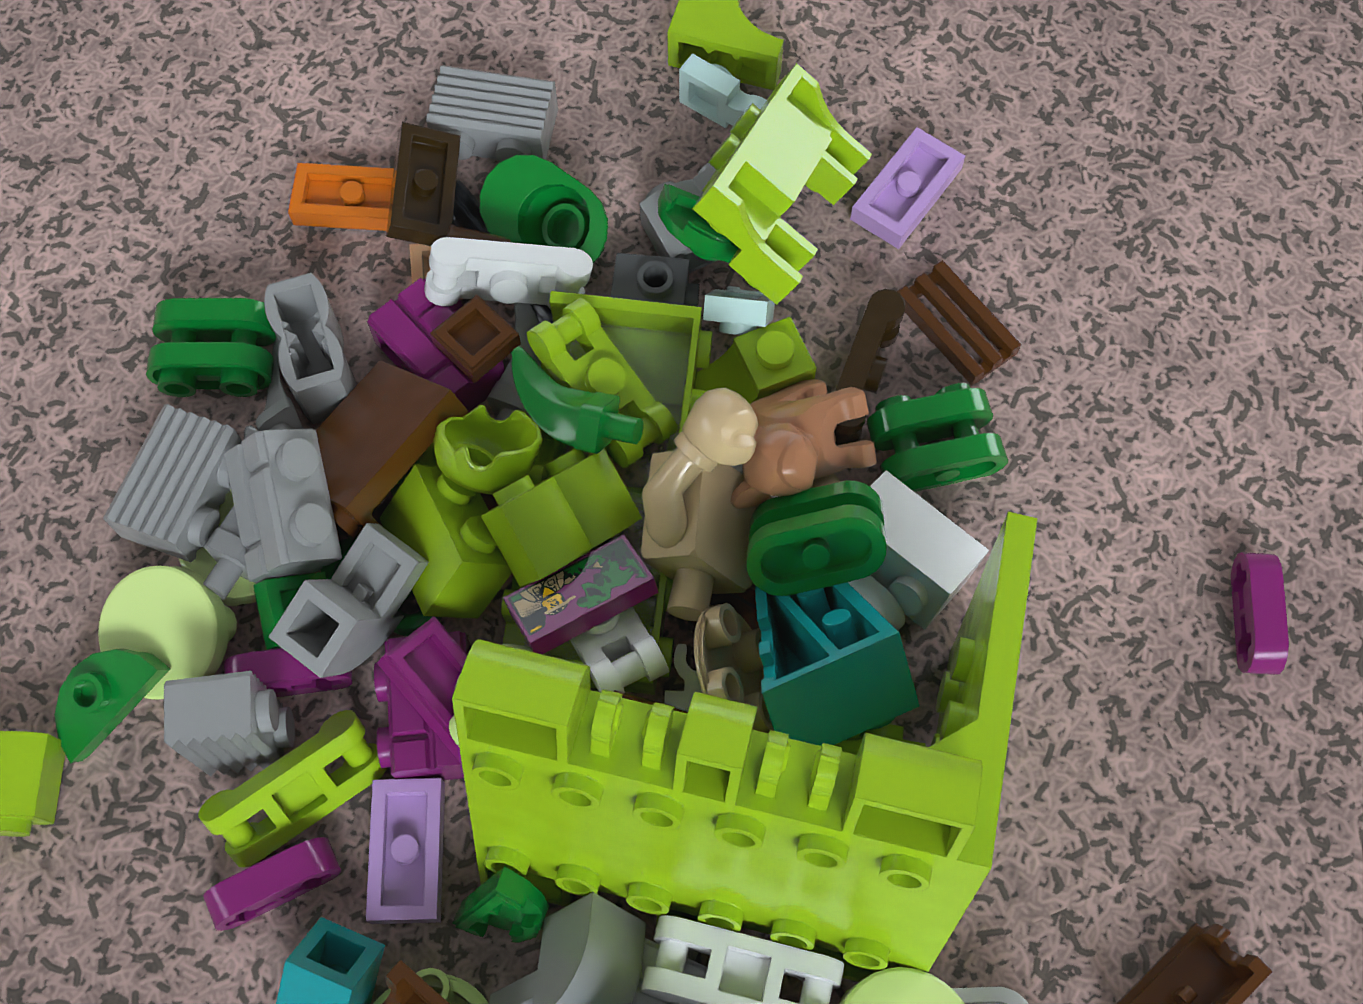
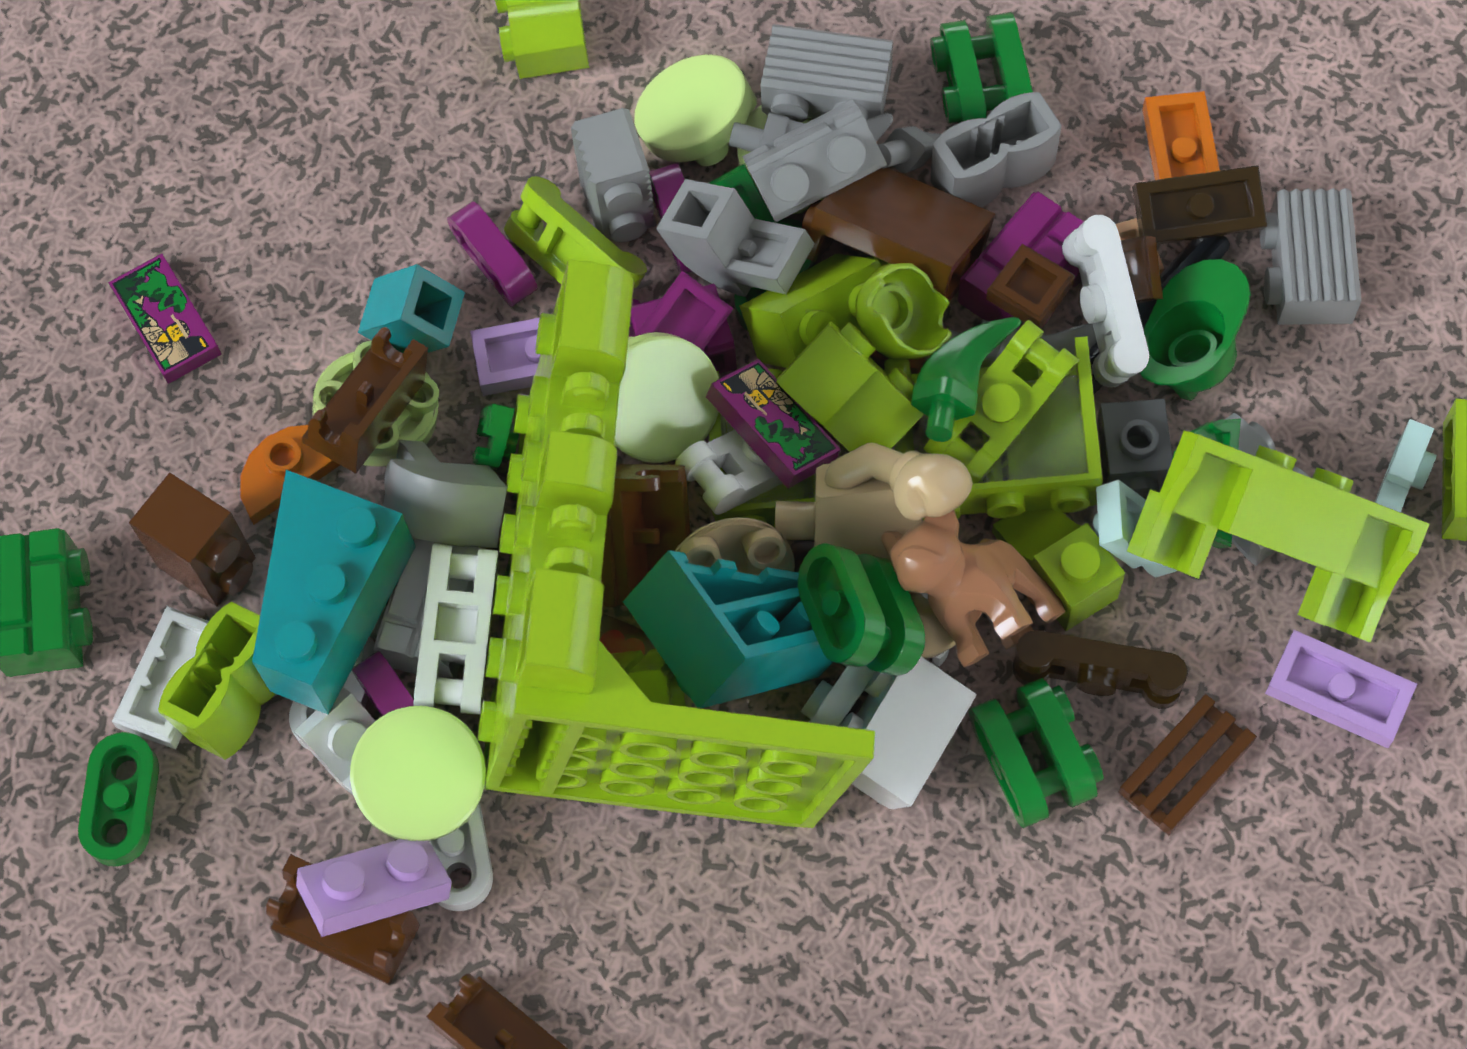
camera: 85 degrees right, 0 degrees up
(101, 695) = (627, 77): green plate -> none

